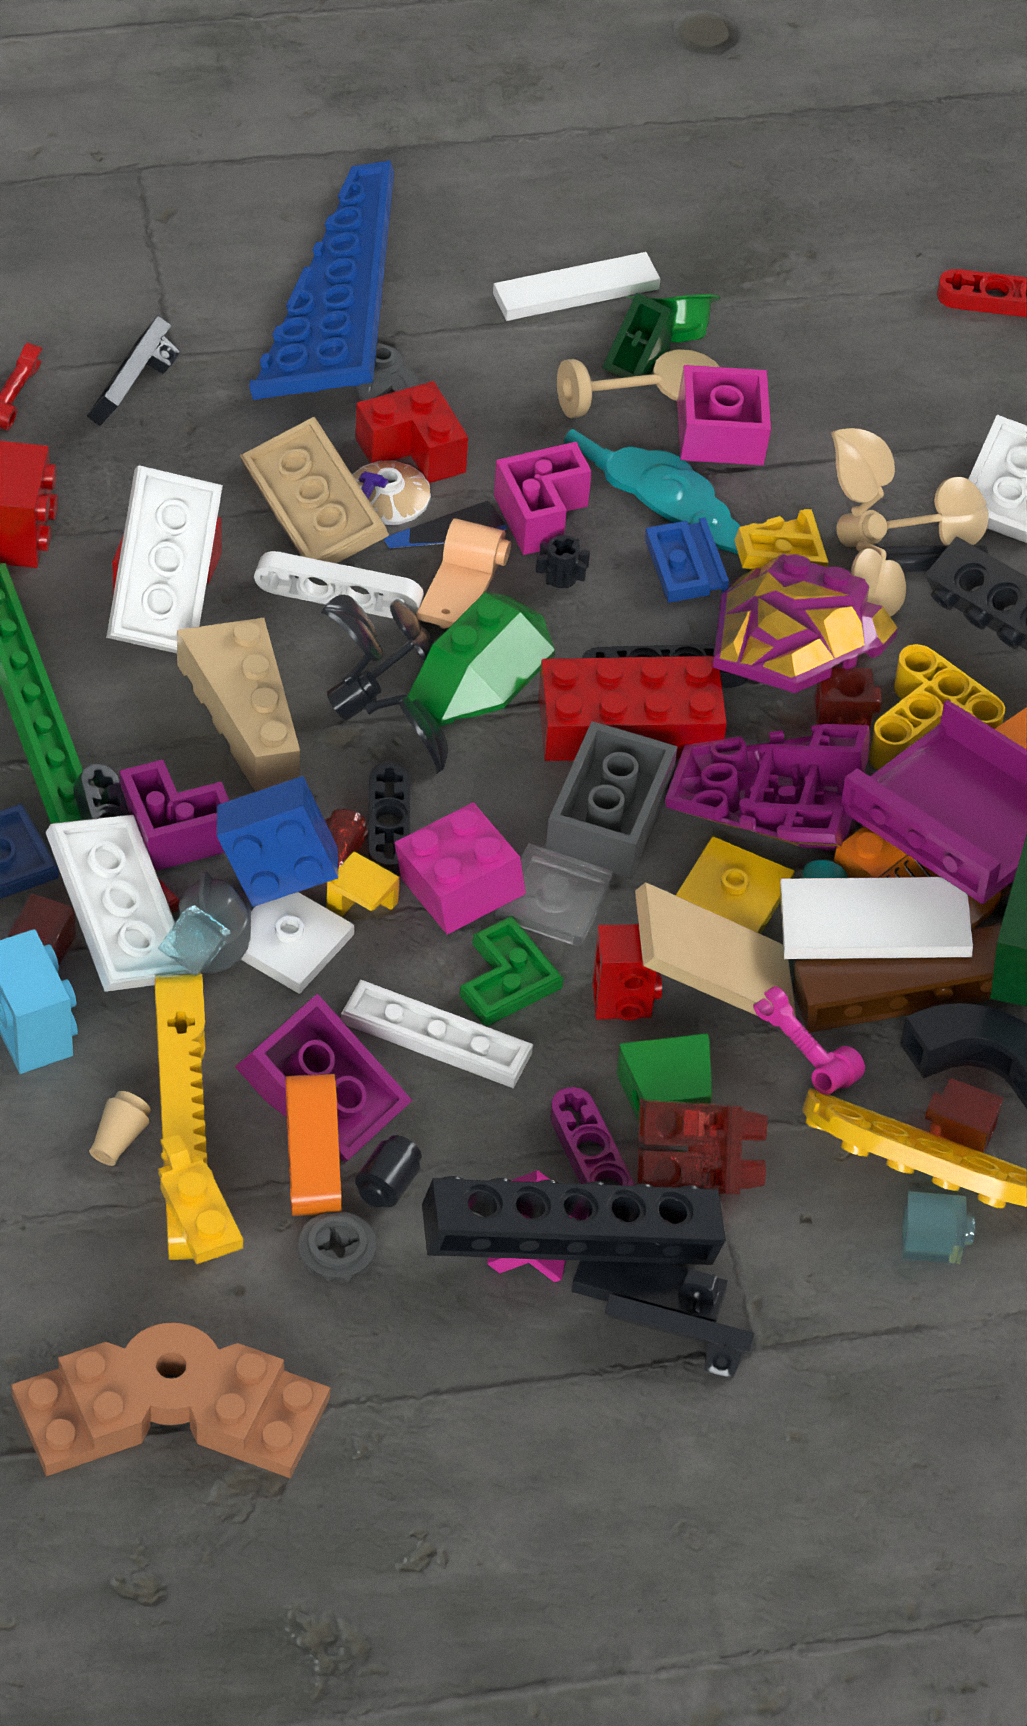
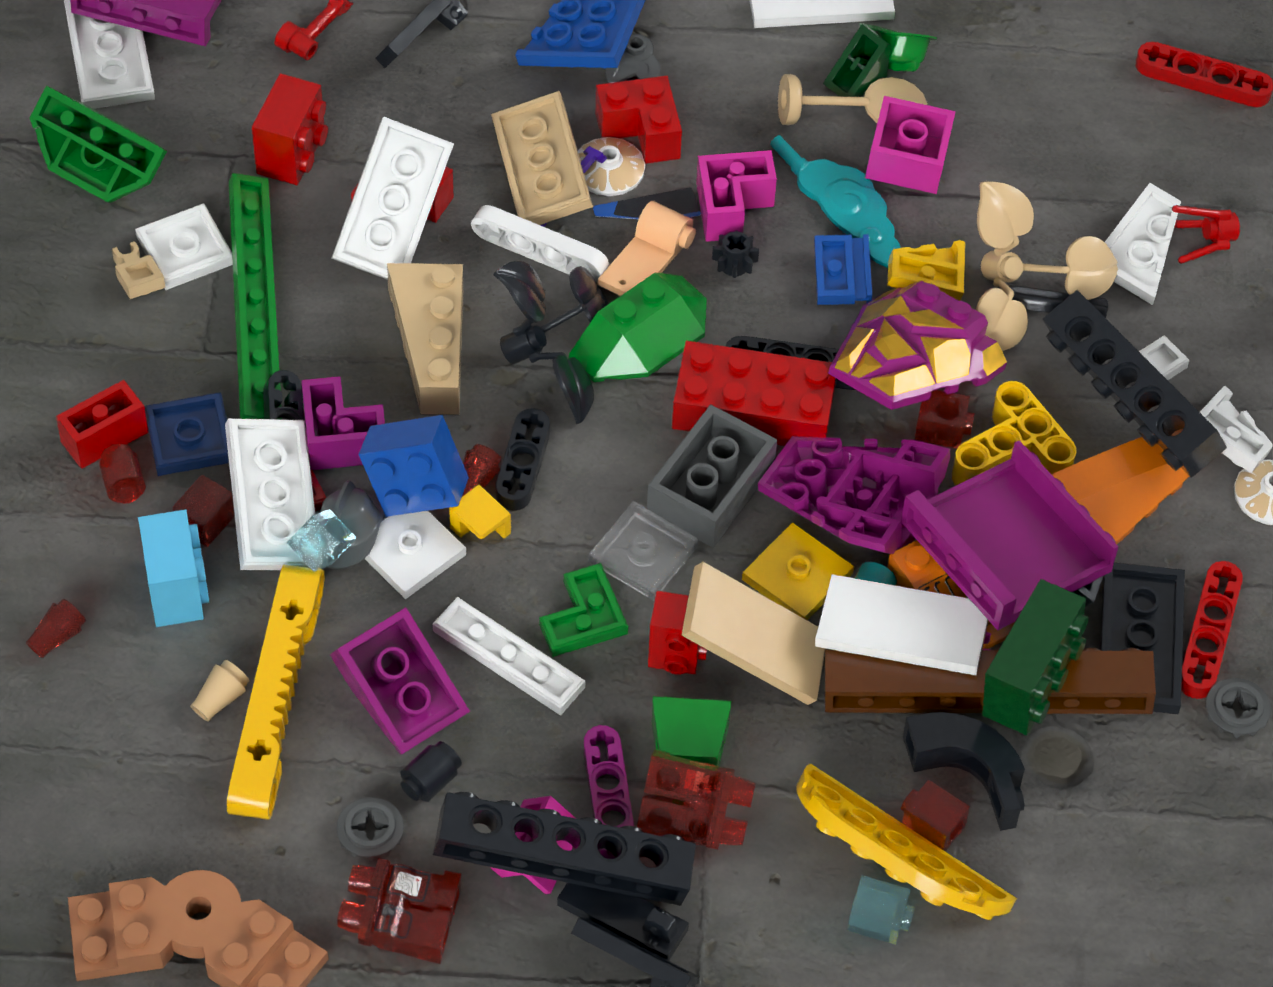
camera: 15 degrees right, 5 degrees up
(196, 1203) = (256, 772): yellow hinge -> none
(313, 1144) = (370, 737): orange beam -> none
(404, 1325) = (403, 909): none -> clear red hips
(460, 868) = (565, 514): dark pink brick -> none
(833, 1069) = (833, 751): dark pink brick -> none

